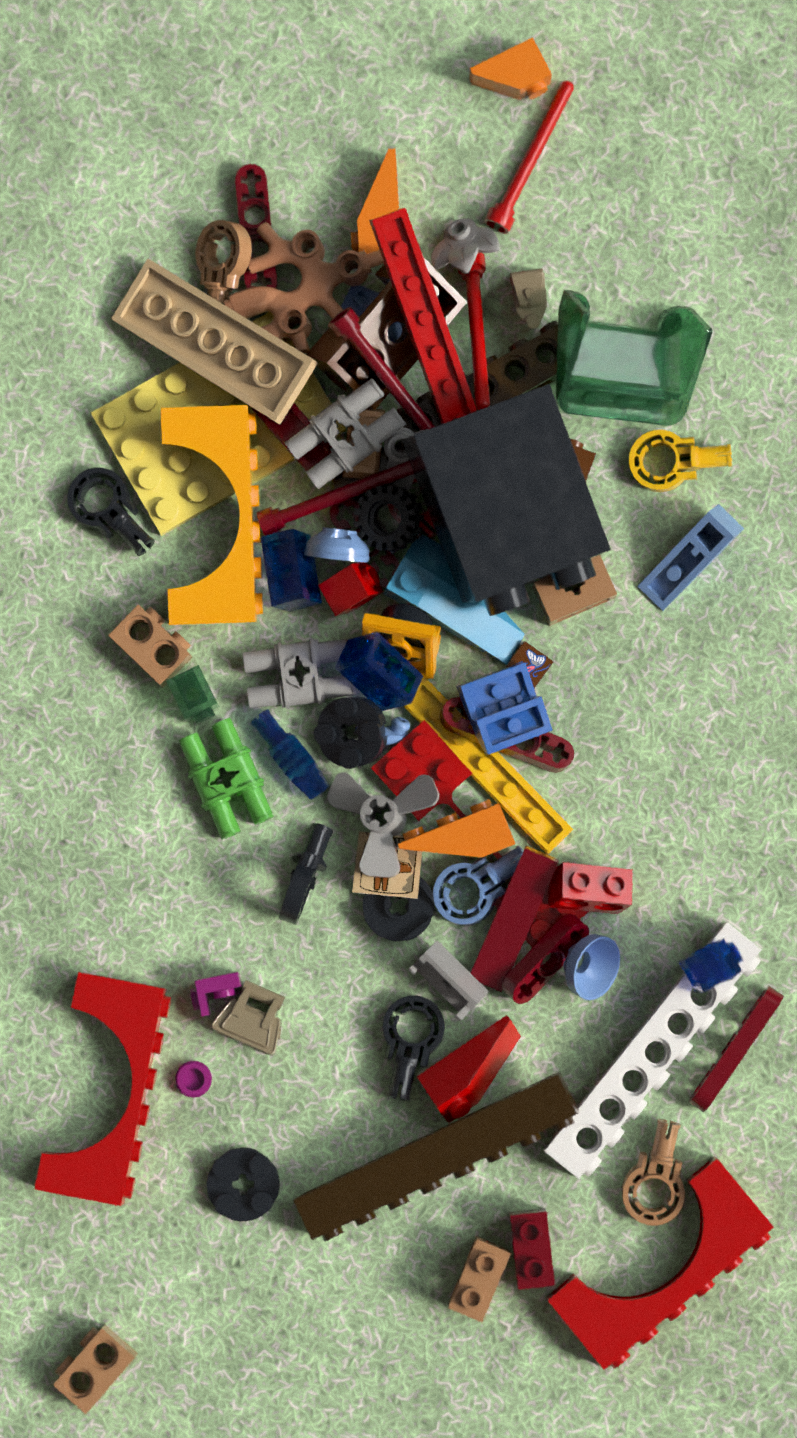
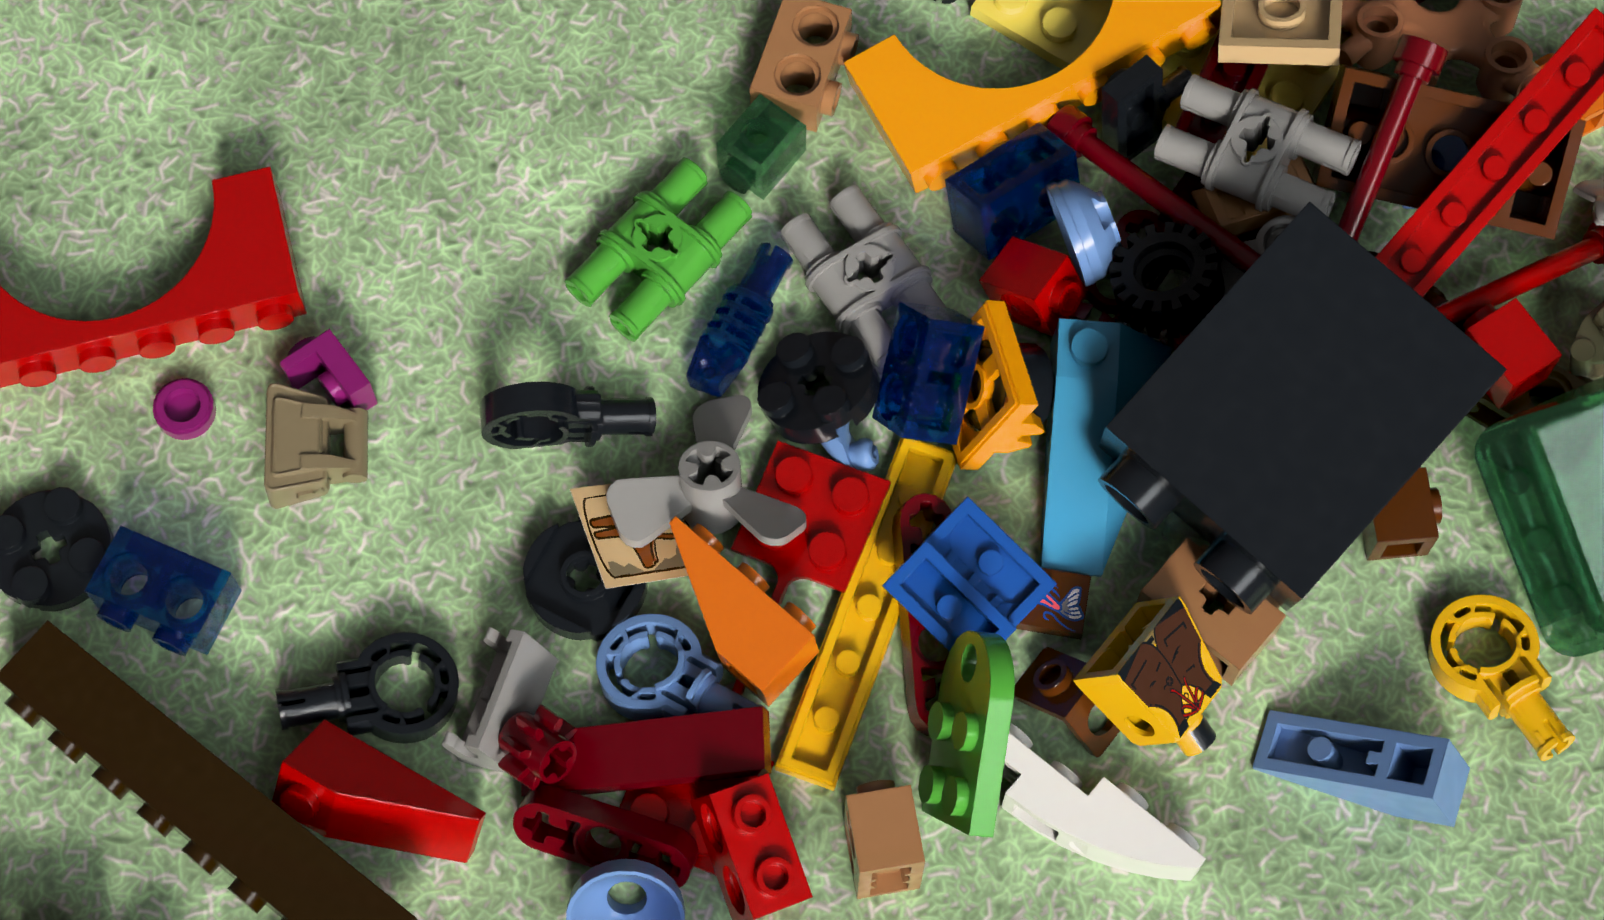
camera: 60 degrees right, 15 degrees down
(275, 477) = (1136, 103): none -> black plate
(295, 1126) = (170, 582): none -> clear blue brick
(487, 973) = (537, 747): none -> dark red gear
(518, 364) = (1517, 344): none -> red brick
(583, 684) = (1051, 689): none -> reddish brown bracket
(590, 750) = (969, 734): none -> bright green plate
(599, 638) = (1155, 677): none -> torso
(619, 819) = (883, 839): none -> medium nougat brick
(658, 702) = (1101, 826): none -> white slope

